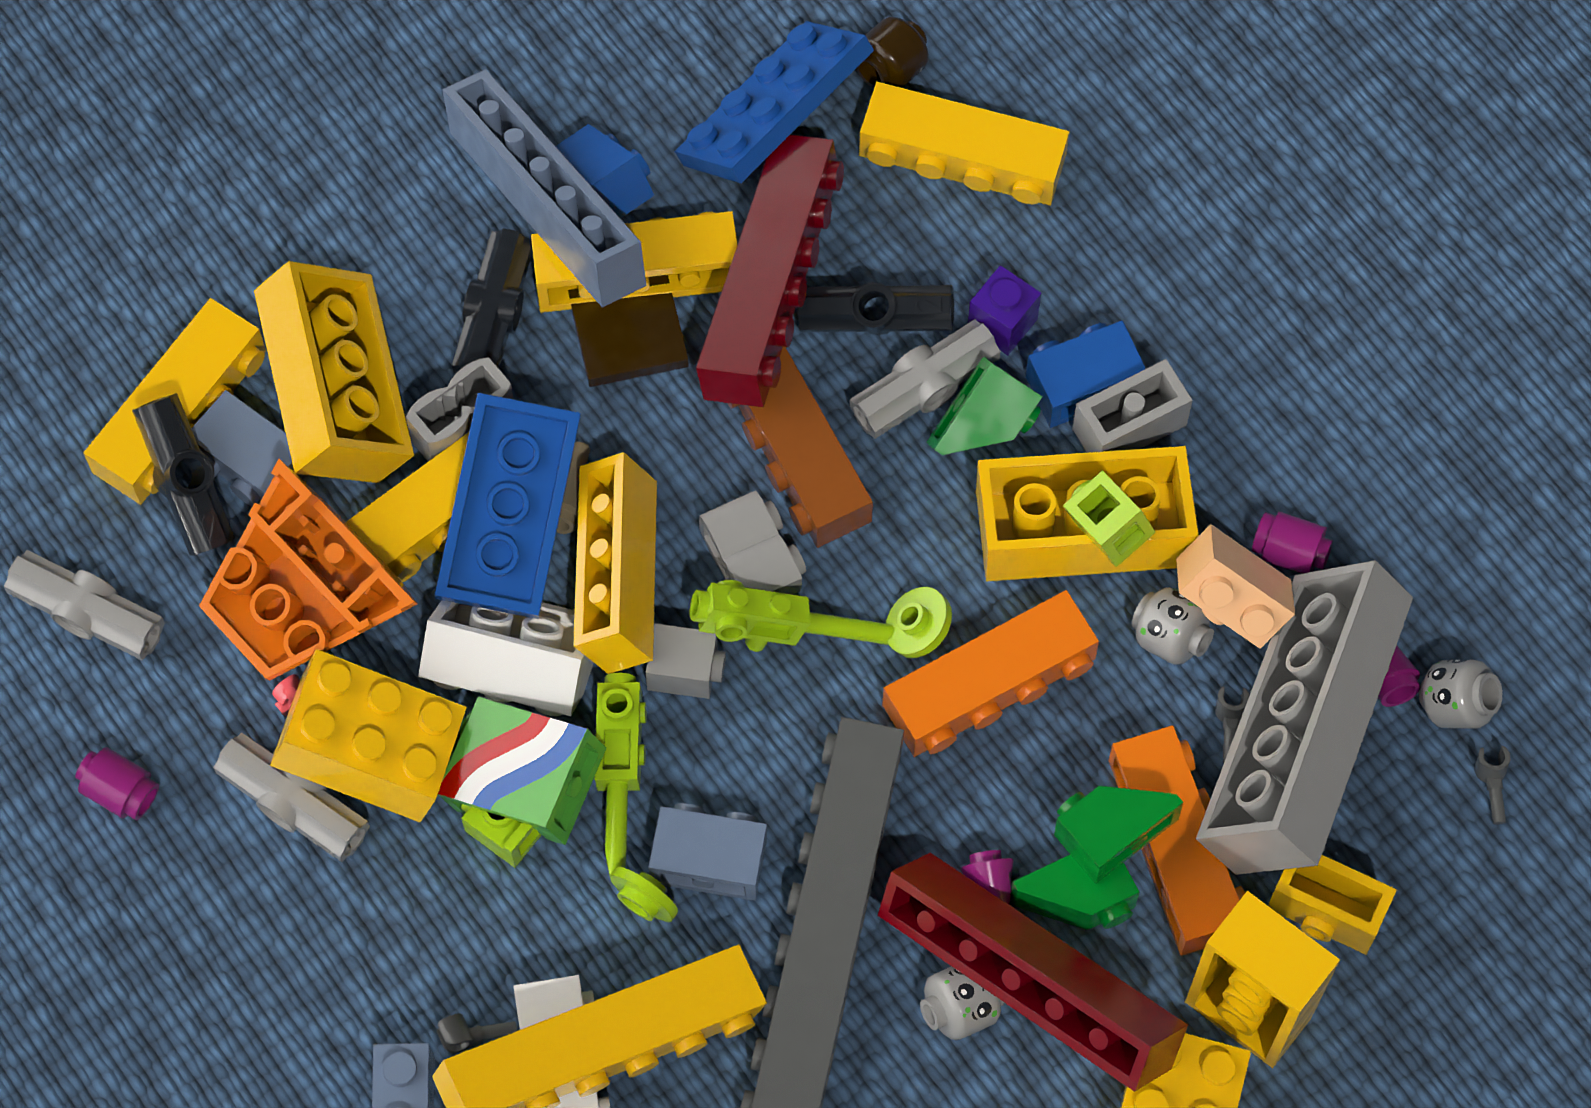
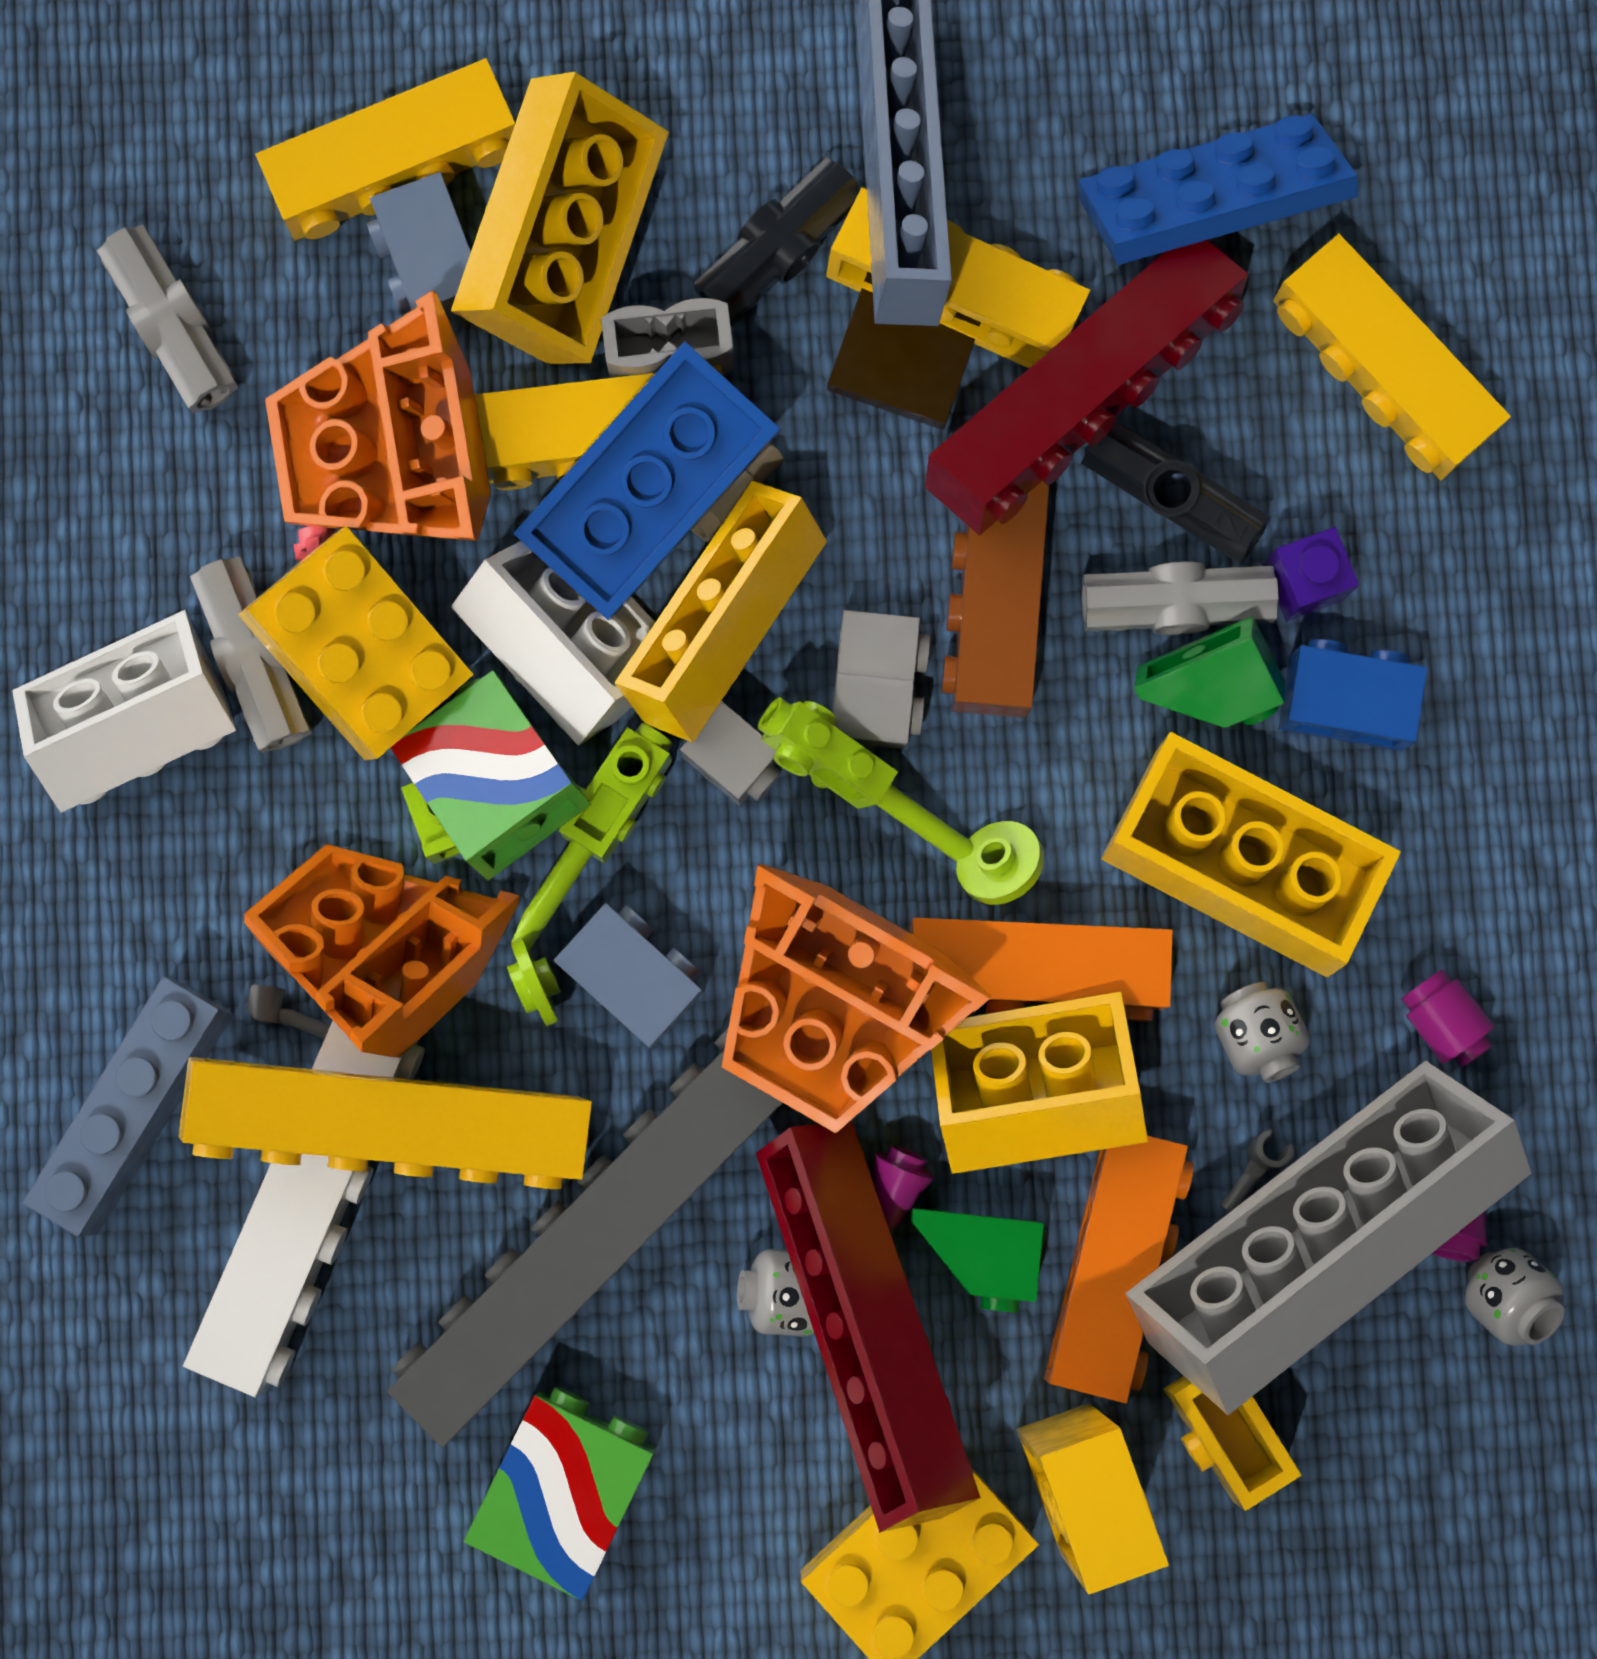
camera: 30 degrees right, 15 degrees up
(116, 783) = (87, 532): magenta brick -> none
(198, 505) = (345, 201): black piece -> none
(222, 890) = (121, 712): none -> white slope
(514, 934) = (379, 944): none -> orange wedge
(609, 168) = (981, 163): blue brick -> none
(867, 767) = (835, 999): none -> orange wedge
(897, 54) = (1384, 212): dark brown head -> none
(1042, 742) = (1038, 1084): none -> yellow brick
(1109, 518) = (1265, 915): lime brick -> none
(1113, 825) = (1048, 1222): green slope -> none
(1133, 411) = (1371, 775): light grey brick -> none
(1235, 586) = (1351, 1040): light nougat brick -> none
(1493, 777) = (1489, 1404): dark grey hand -> none

